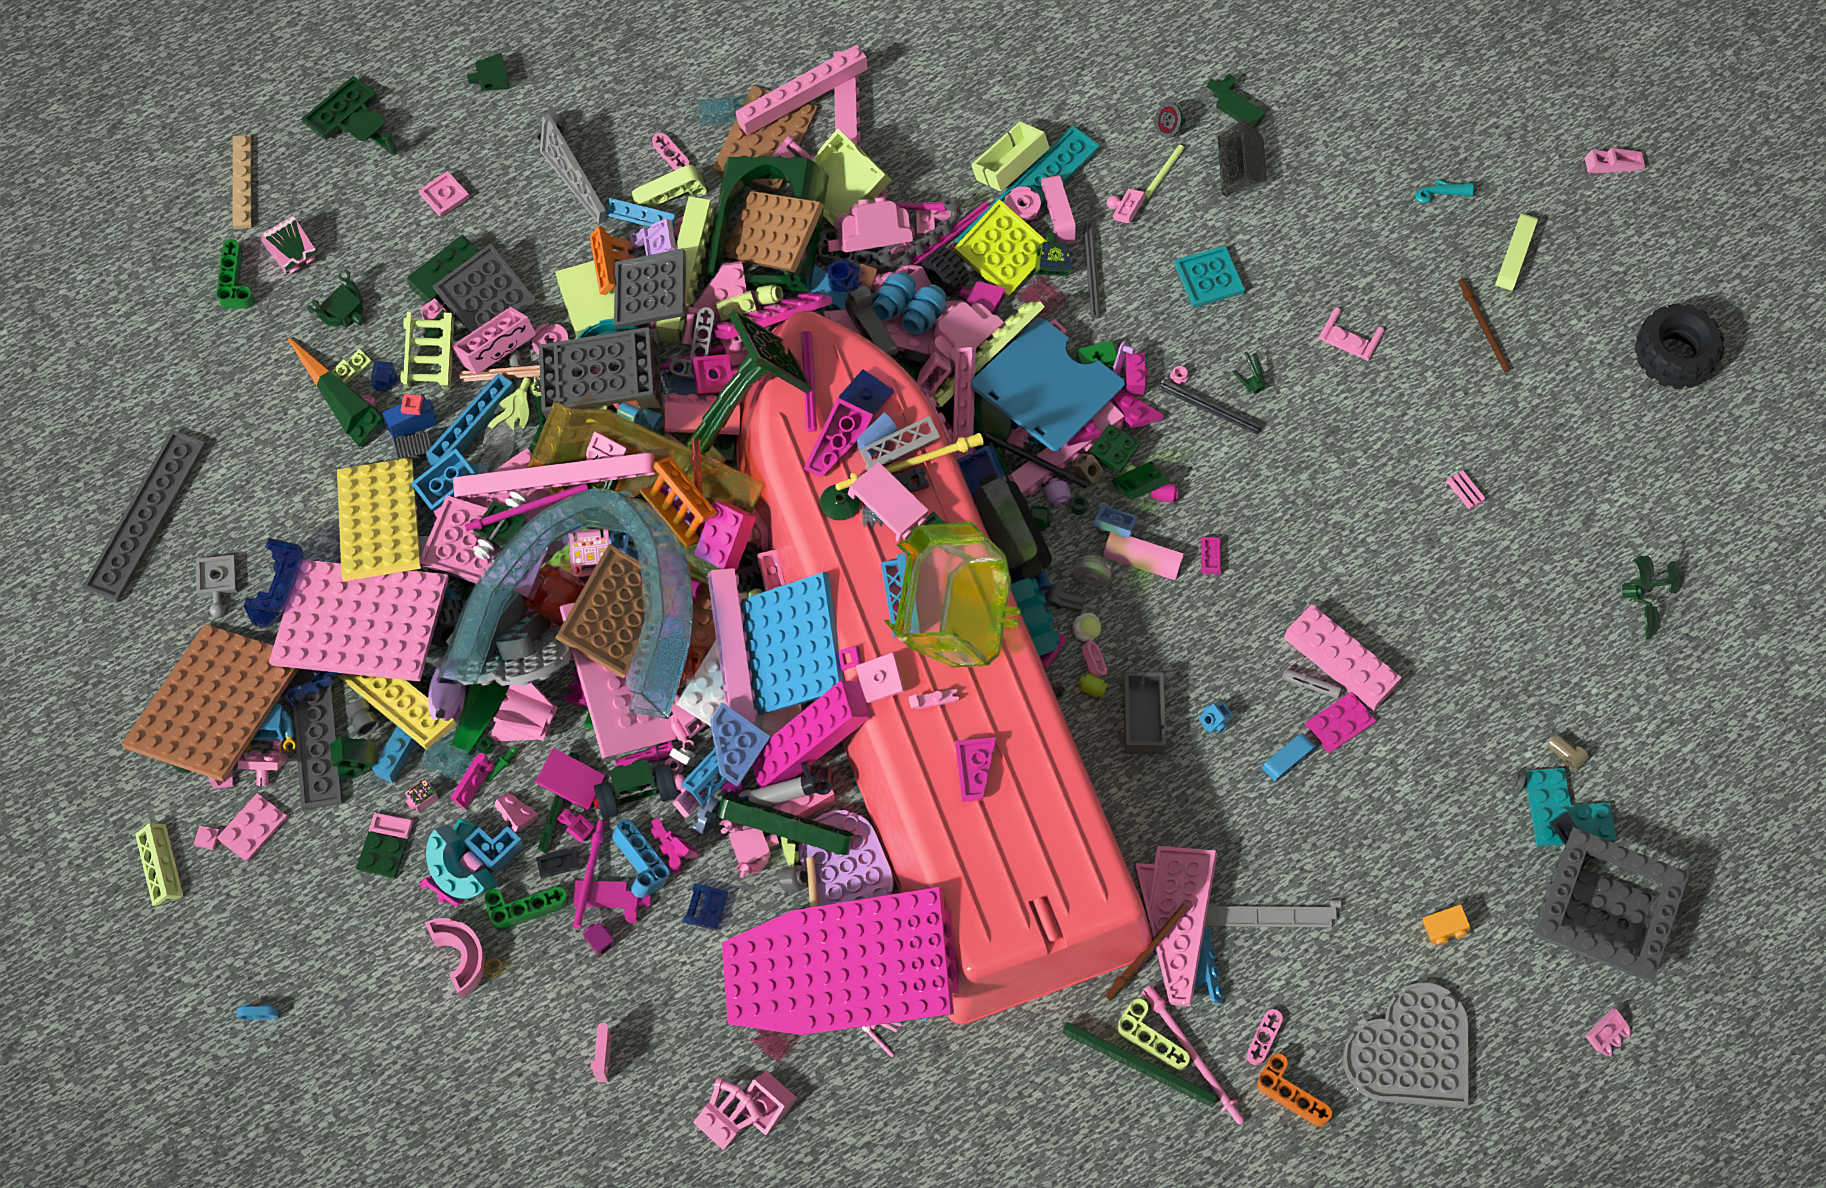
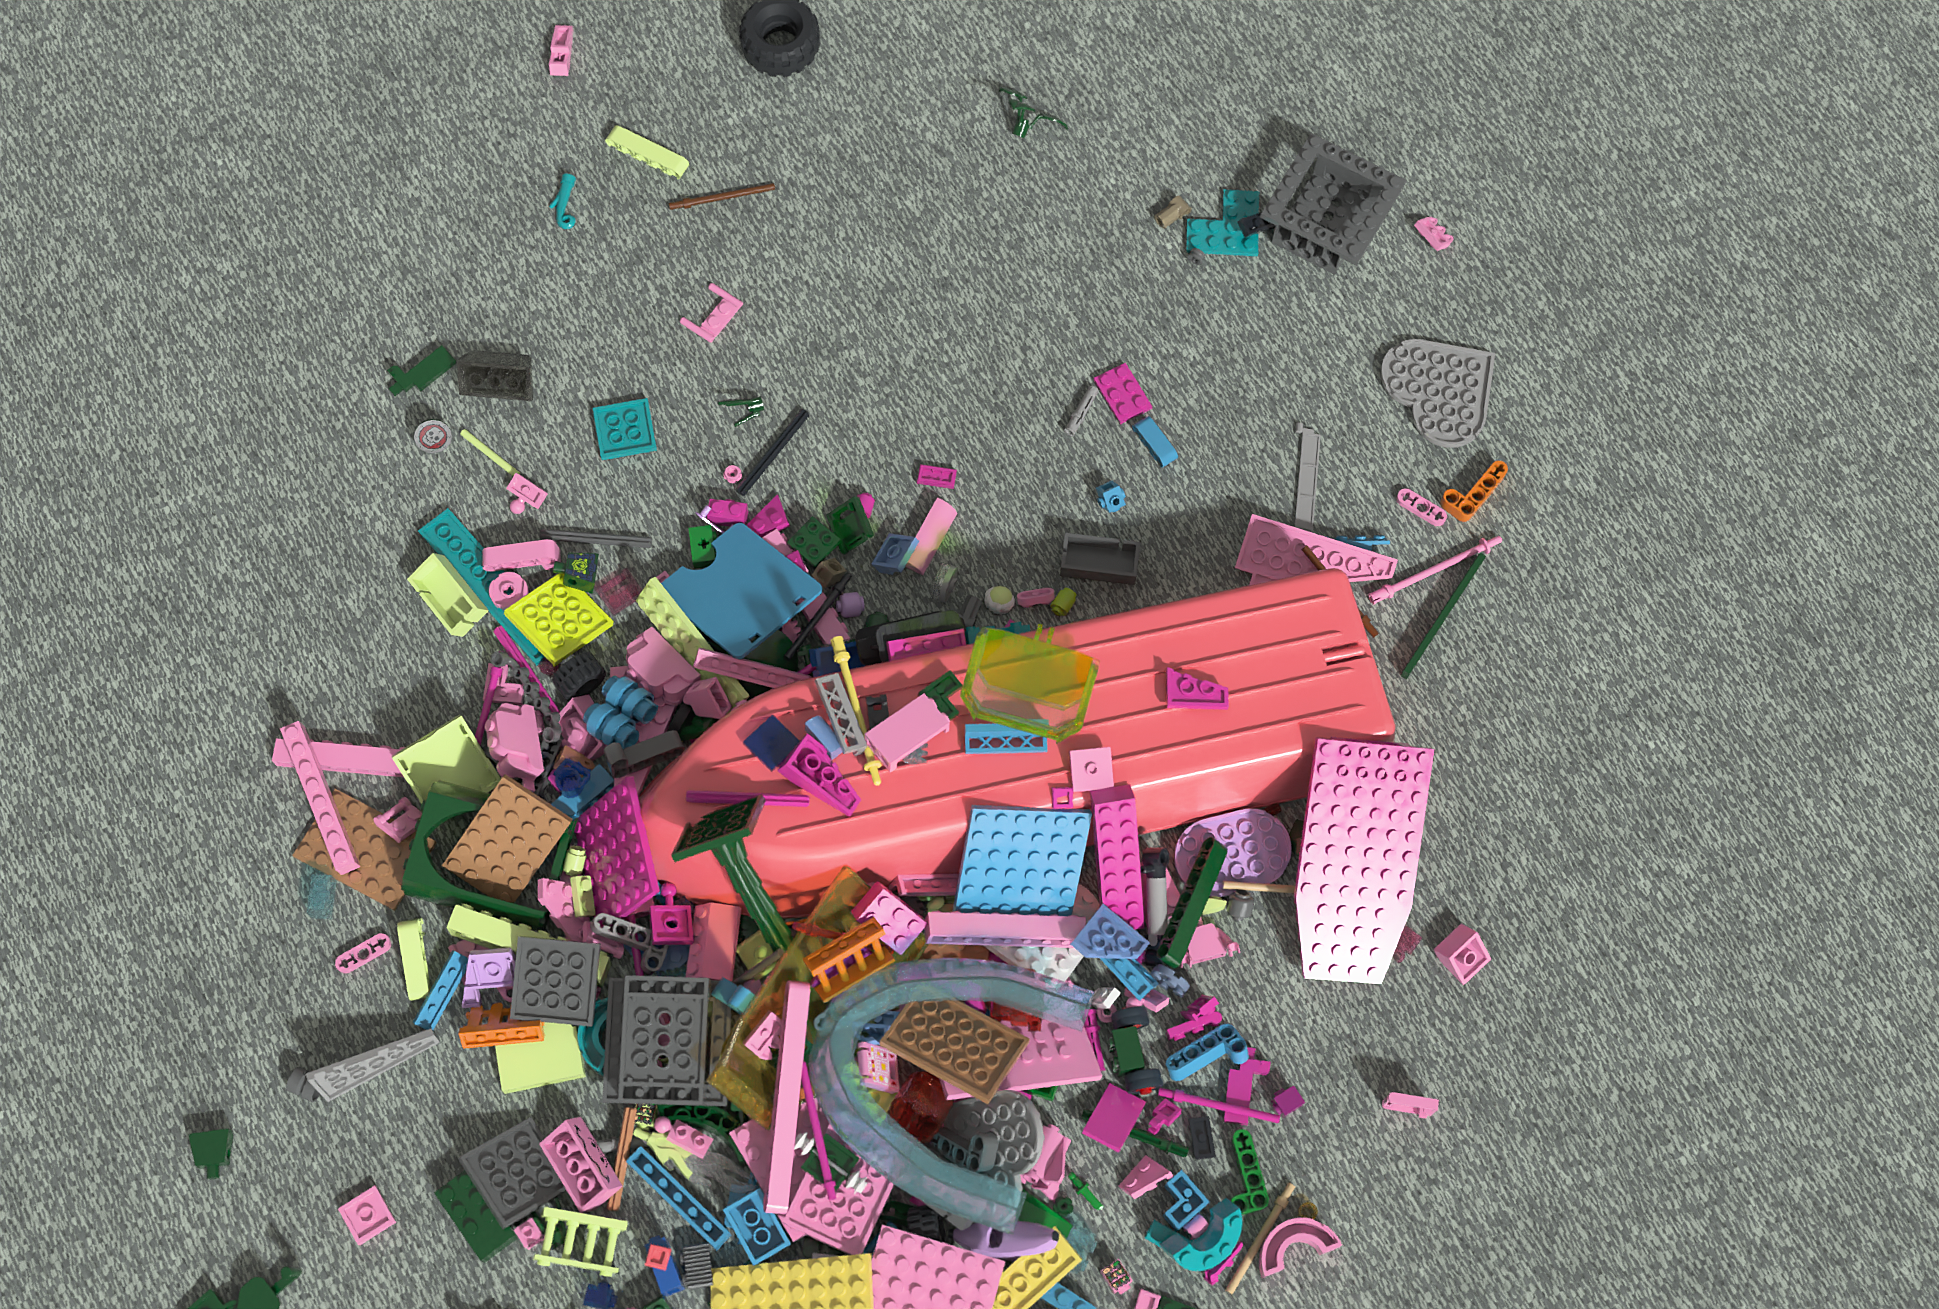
camera: 85 degrees left, 5 degrees up
(472, 780) = (1104, 1221): dark pink plate -> none
(500, 942) = (1280, 1203): none -> tan bar
(524, 417) = (684, 1136): none -> bright pink plate
(548, 331) = (585, 1093): bright pink plate -> none
(711, 910) = (1263, 988): clear blue plate -> none
(717, 1123) = (1484, 997): bright pink plate -> none
(838, 509) = (891, 794): dark green dish -> none
(933, 699) = (1118, 721): bright pink piece -> none
(985, 294) = (613, 646): dark pink torso -> none
(995, 524) = (925, 644): none -> dark pink plate
(1079, 500) = (865, 582): dark green plate -> none
(1155, 1041) = (1422, 599): yellowish green beam -> none
(1342, 657) = (1060, 378): bright pink brick -> none
(1446, 925) = (1330, 339): light orange brick -> none
(1462, 474) = (893, 239): bright pink tile -> none

